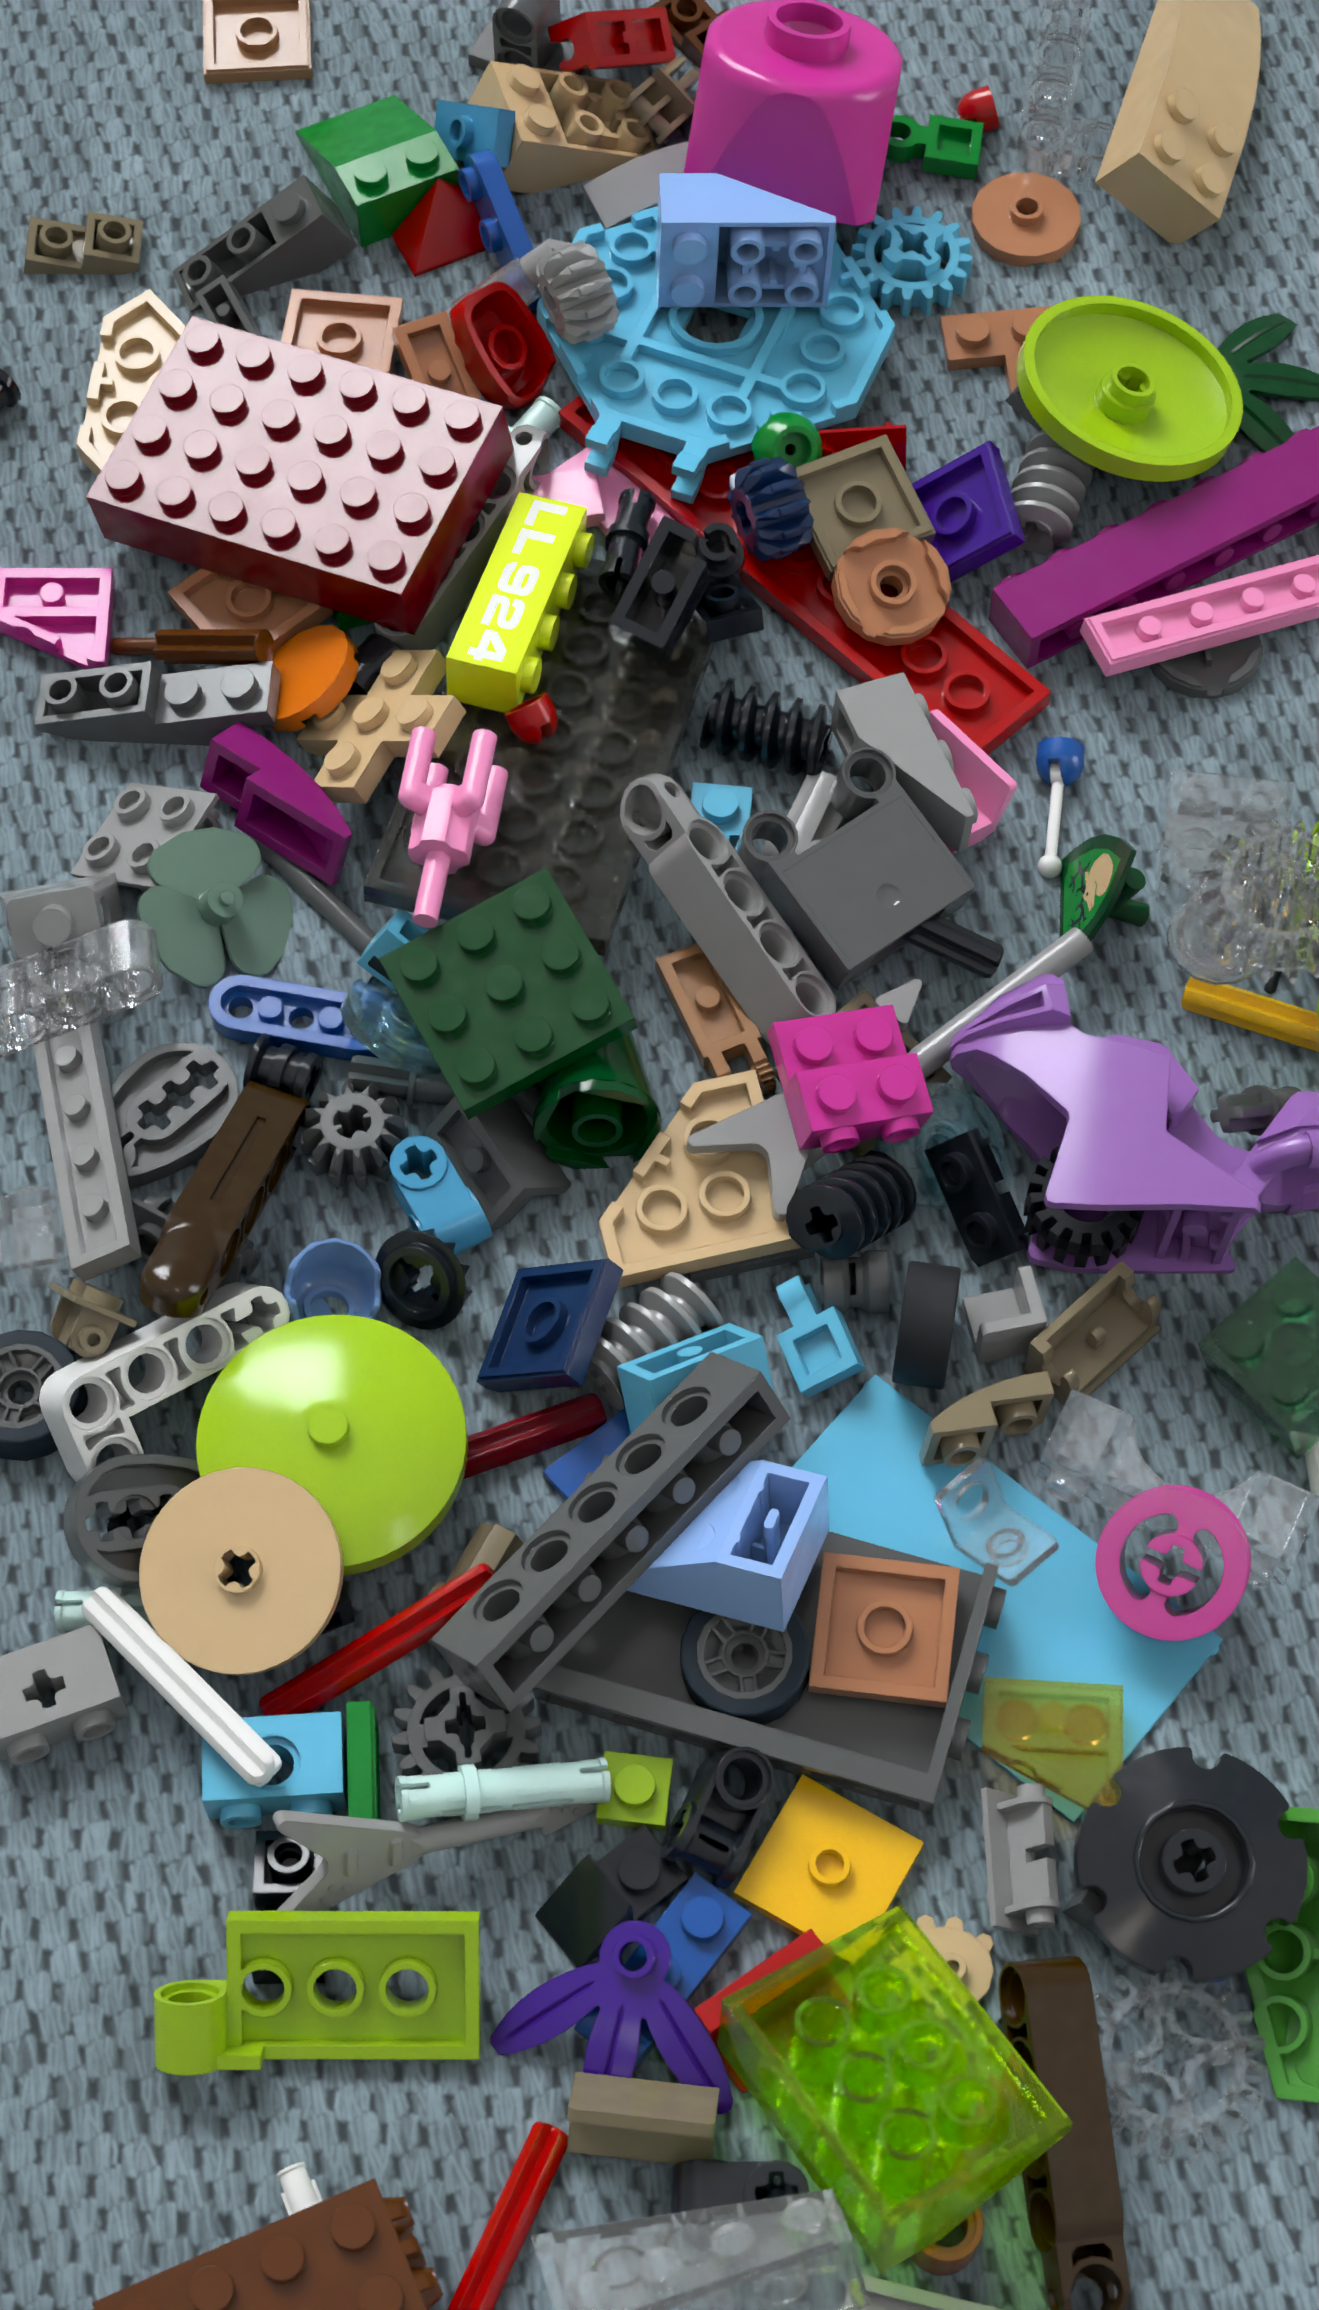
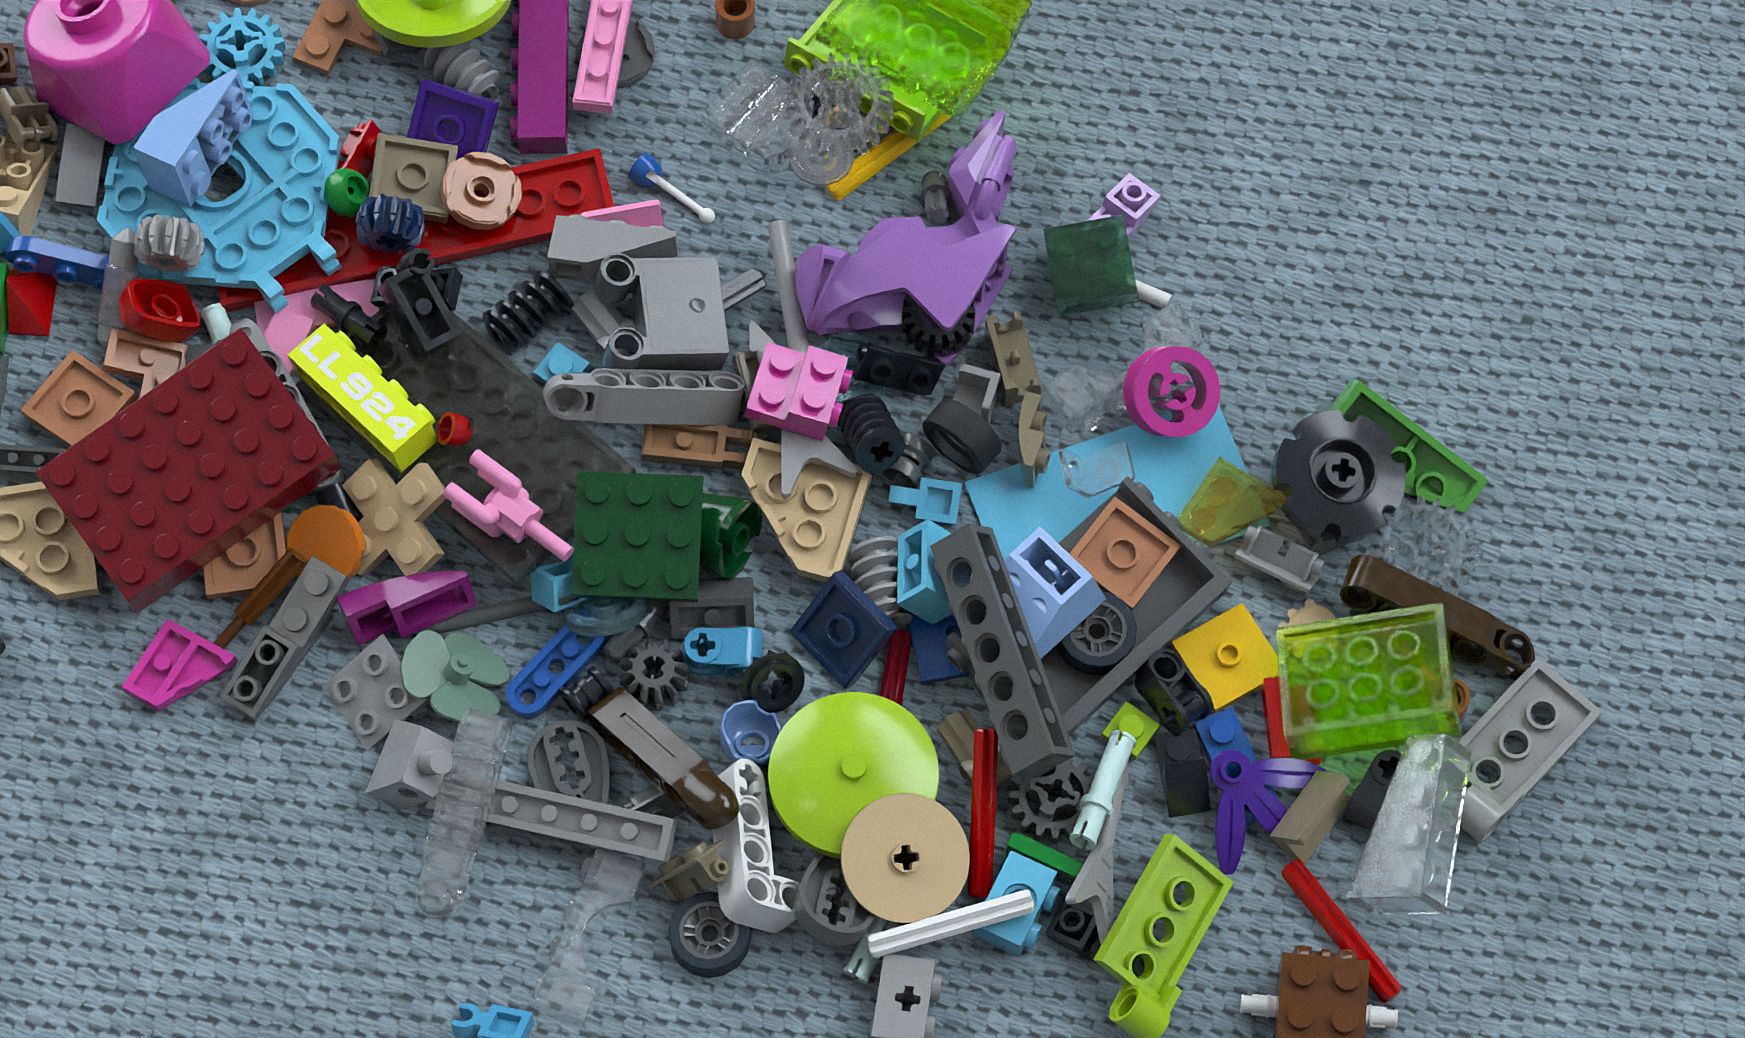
camera: 60 degrees left, 5 degrees up
(1100, 885) = (746, 199): shield -> none

